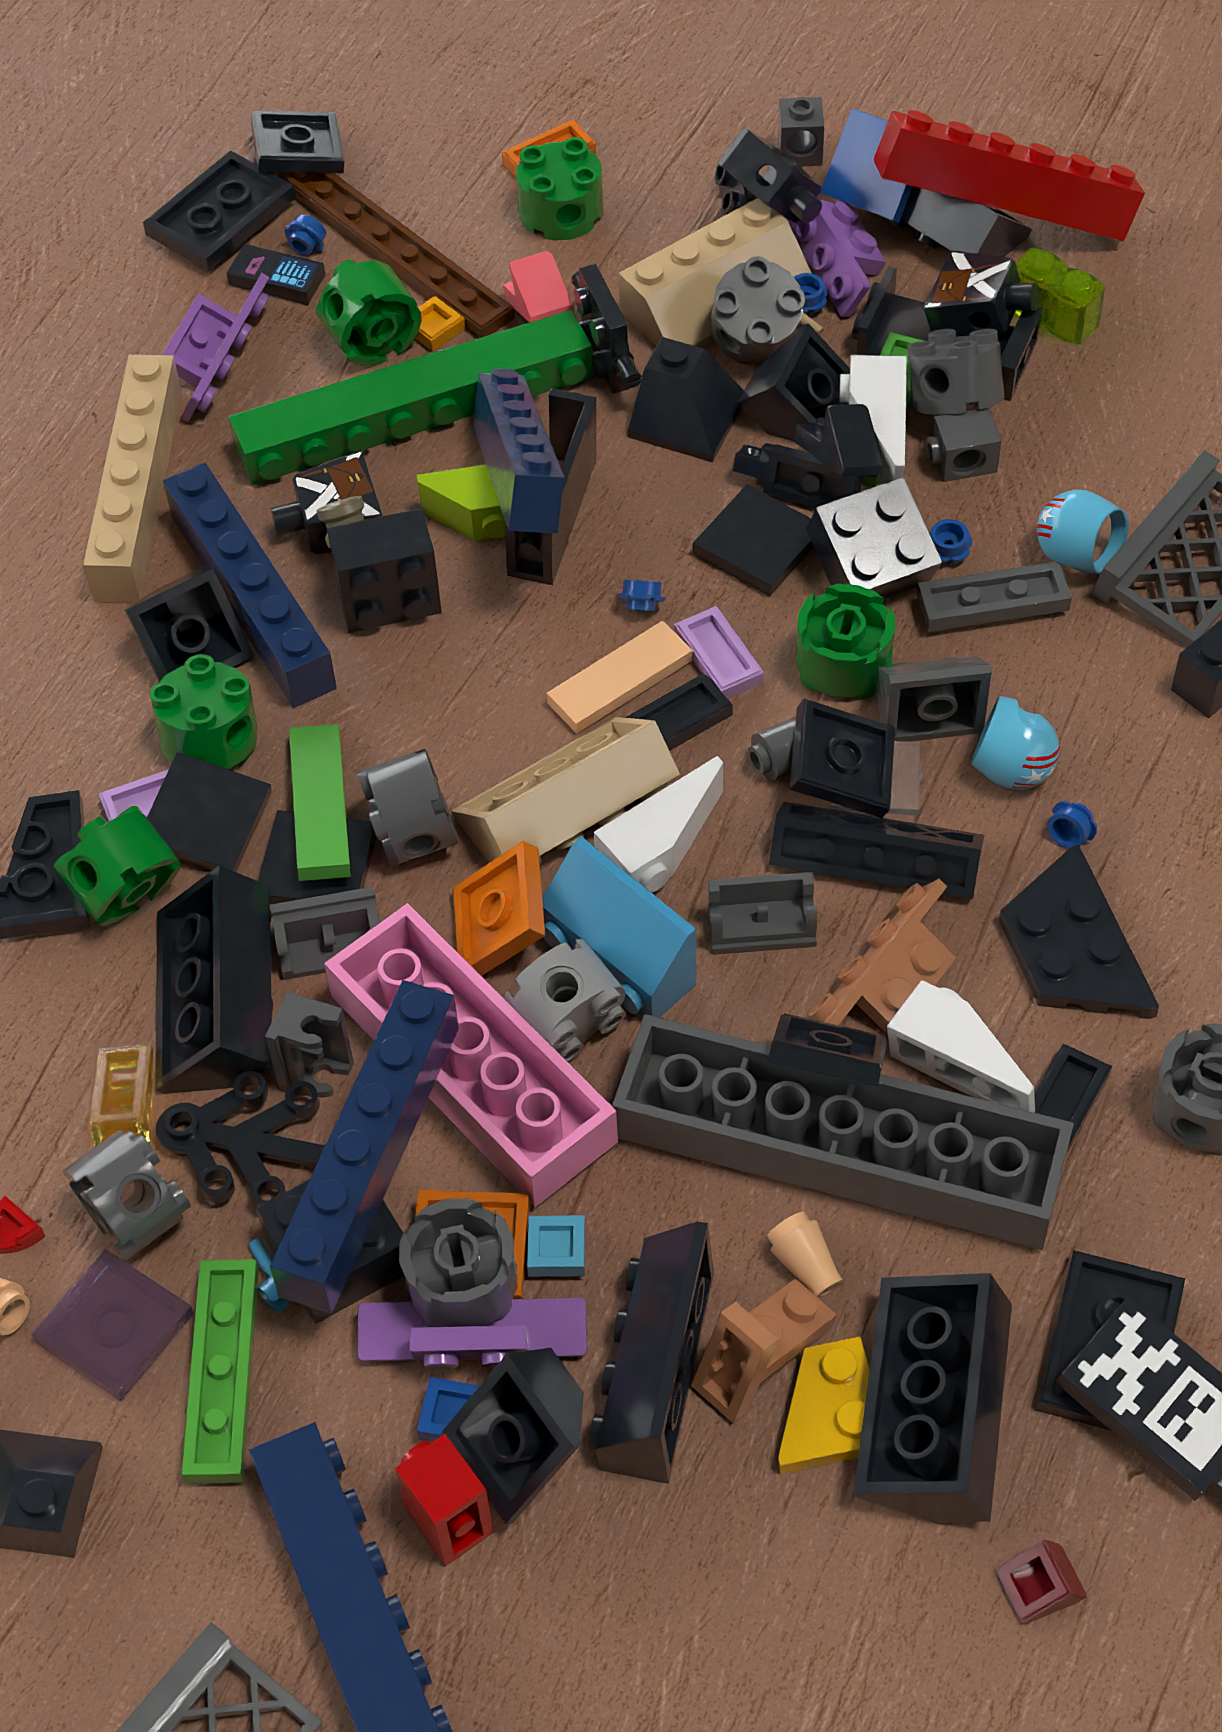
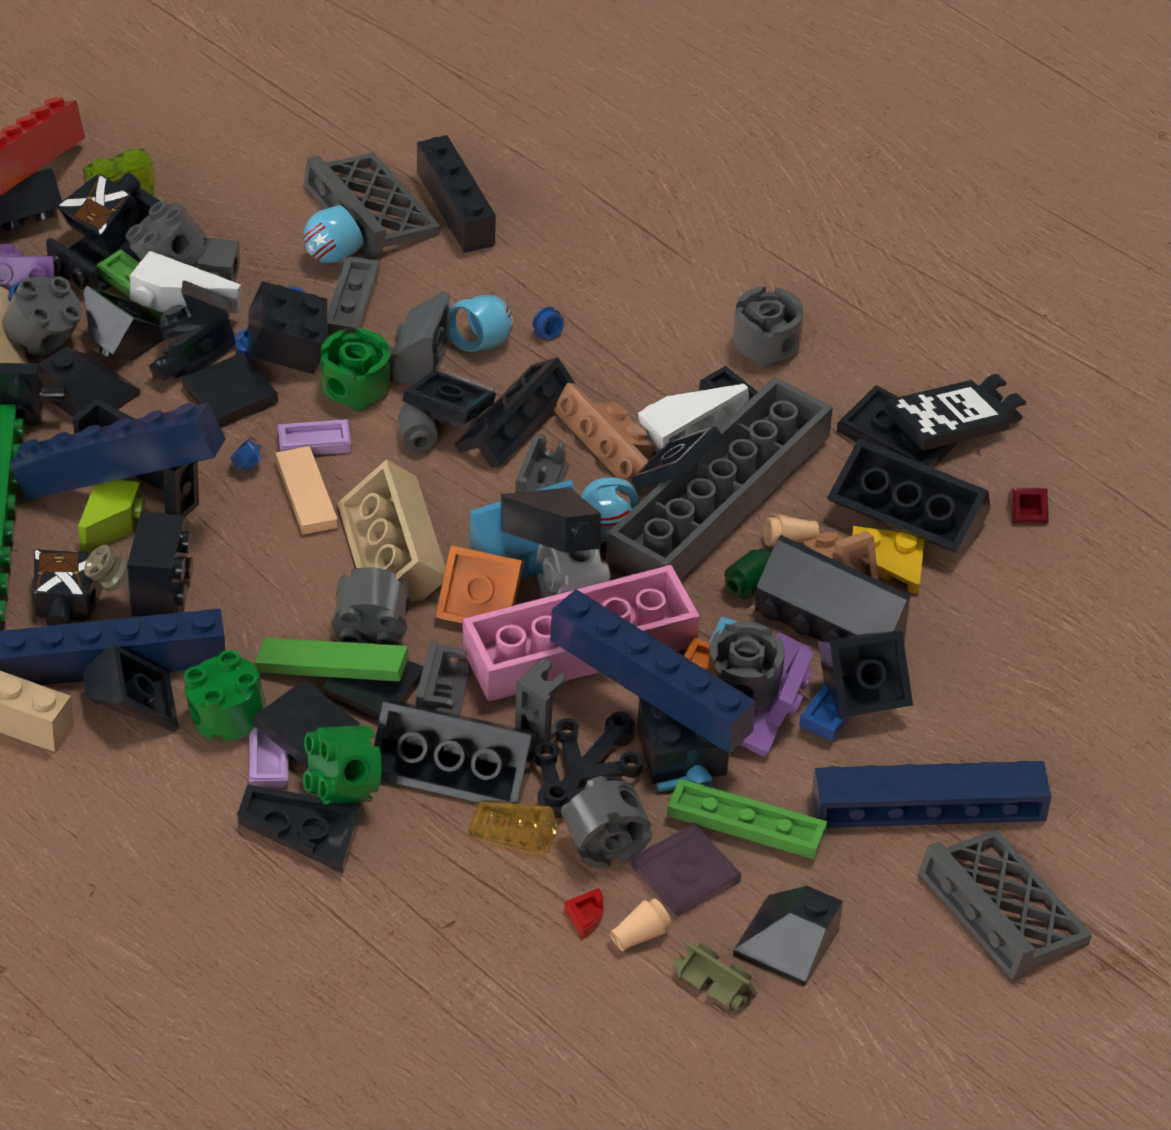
camera: 75 degrees left, 10 degrees down
(444, 1498) = (891, 721): red brick -> none
(595, 933) = (552, 519): none -> black slope
(660, 830) = (449, 499): white slope -> none
(685, 1210) = (745, 573): none -> dark green brick
(687, 710) = (351, 465): black tile -> none
(707, 1000) = (604, 499): none -> medium azure helmet
(1074, 943) = (629, 355): black wing -> none

